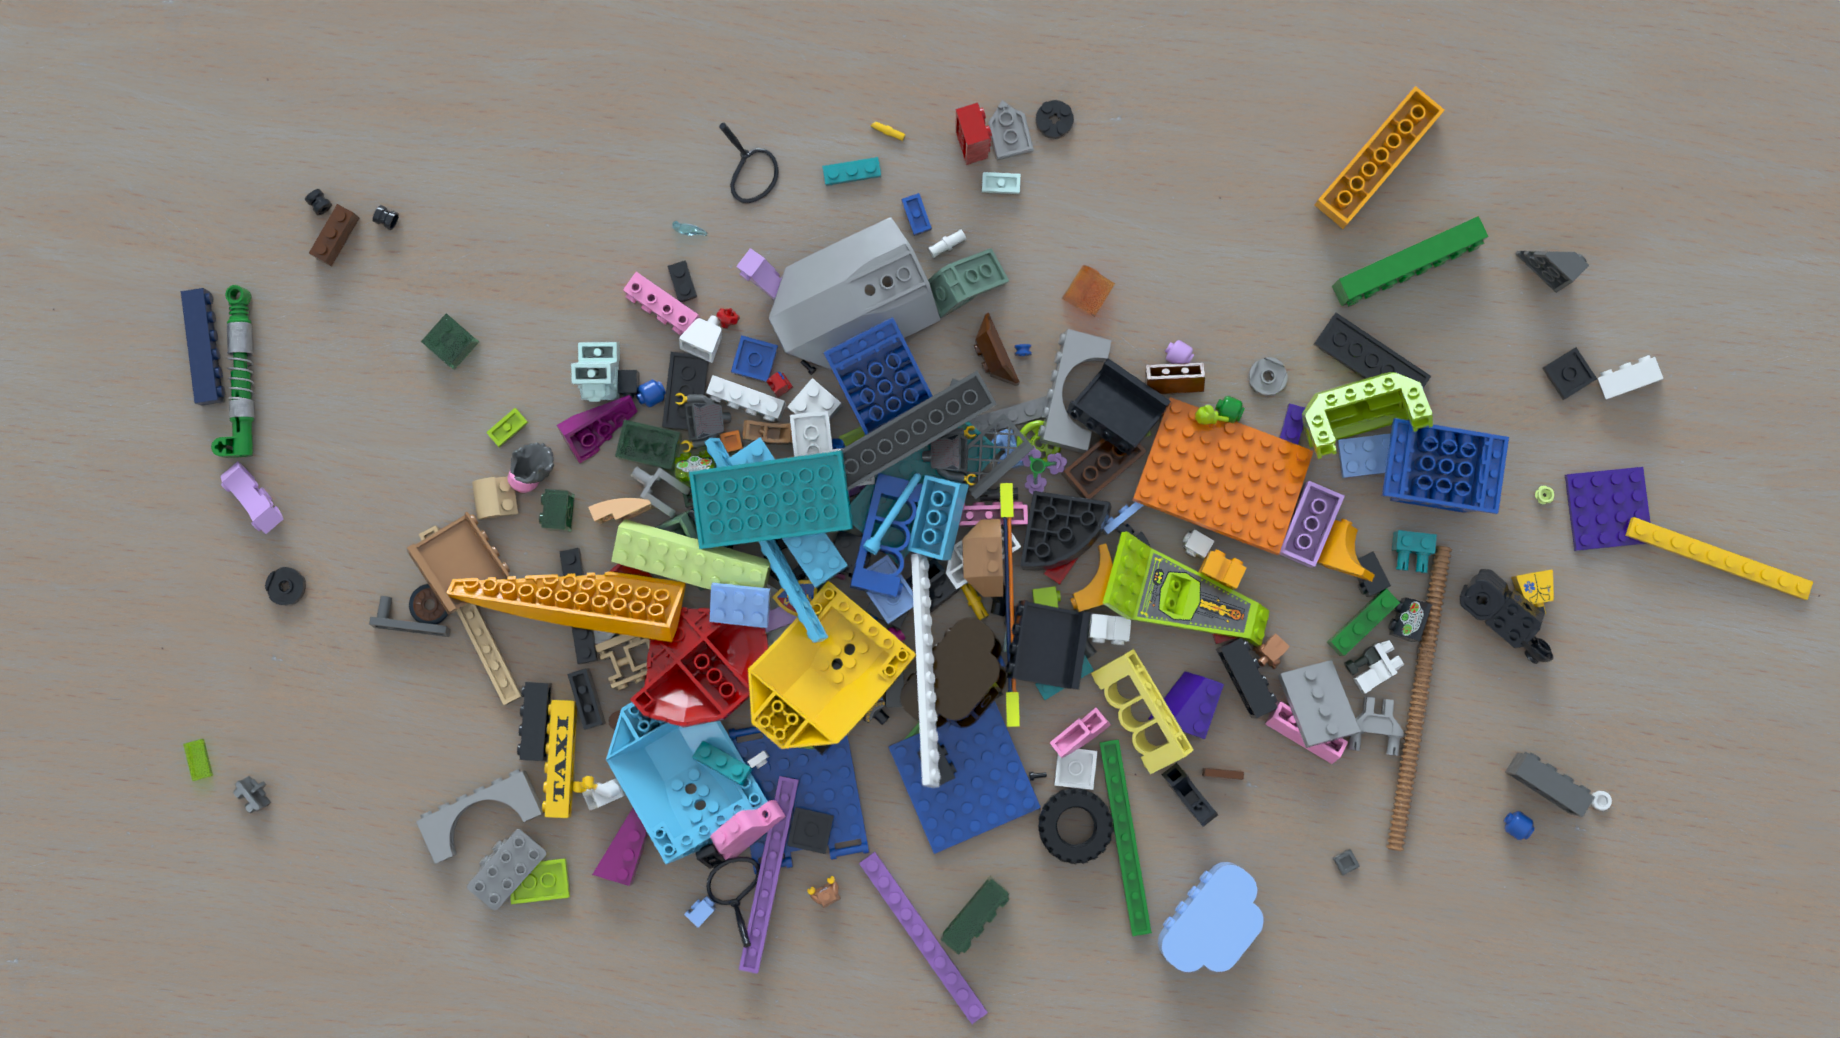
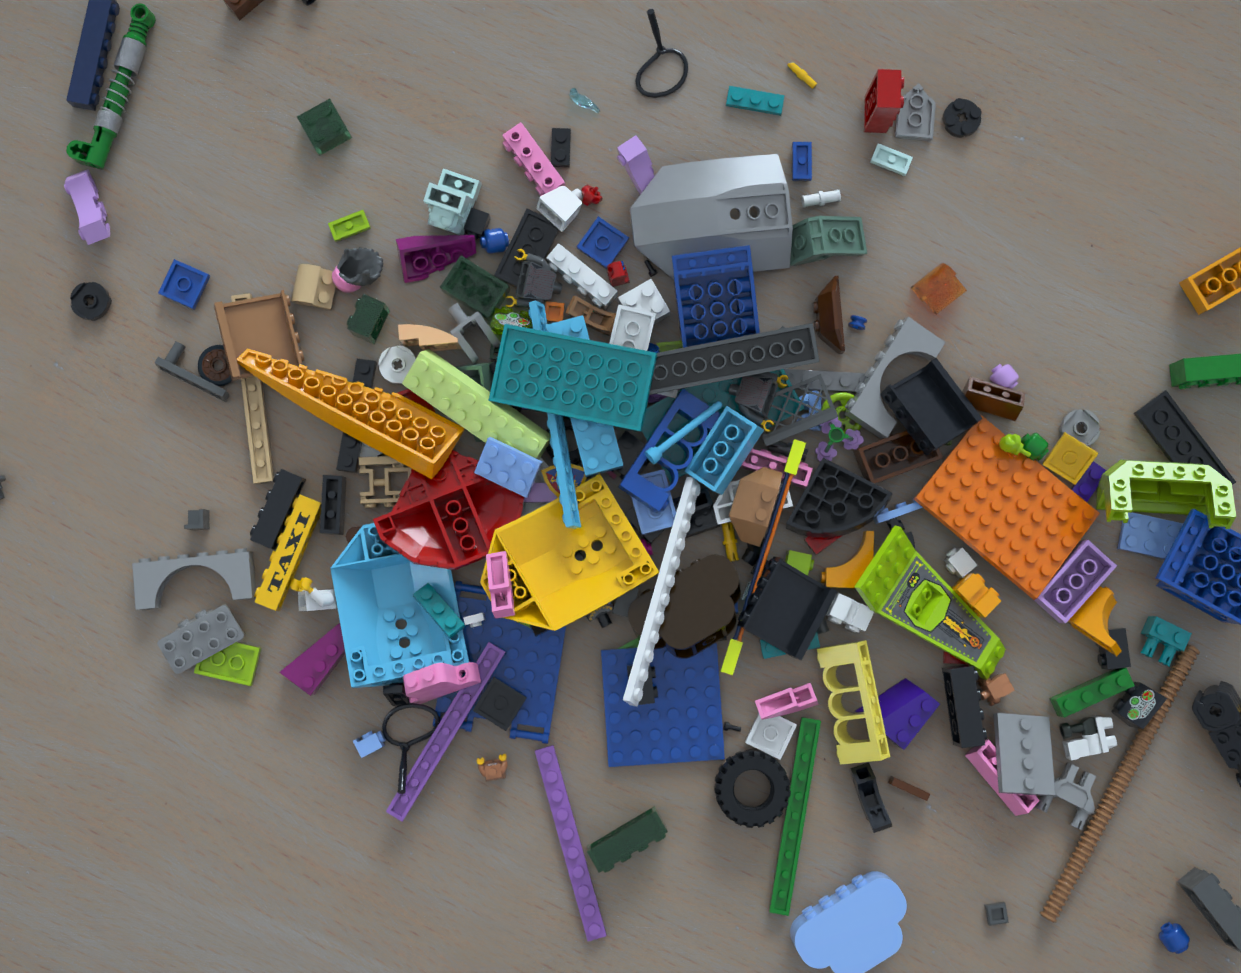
camera: 10 degrees right, 0 degrees up
(369, 538) = (184, 284): none -> blue plate
(463, 758) = (198, 520): none -> dark grey panel
(589, 546) = (394, 354): none -> white plate
(771, 718) = (500, 585): none -> bright pink slope
(1267, 409) = (1070, 458): none -> yellow plate

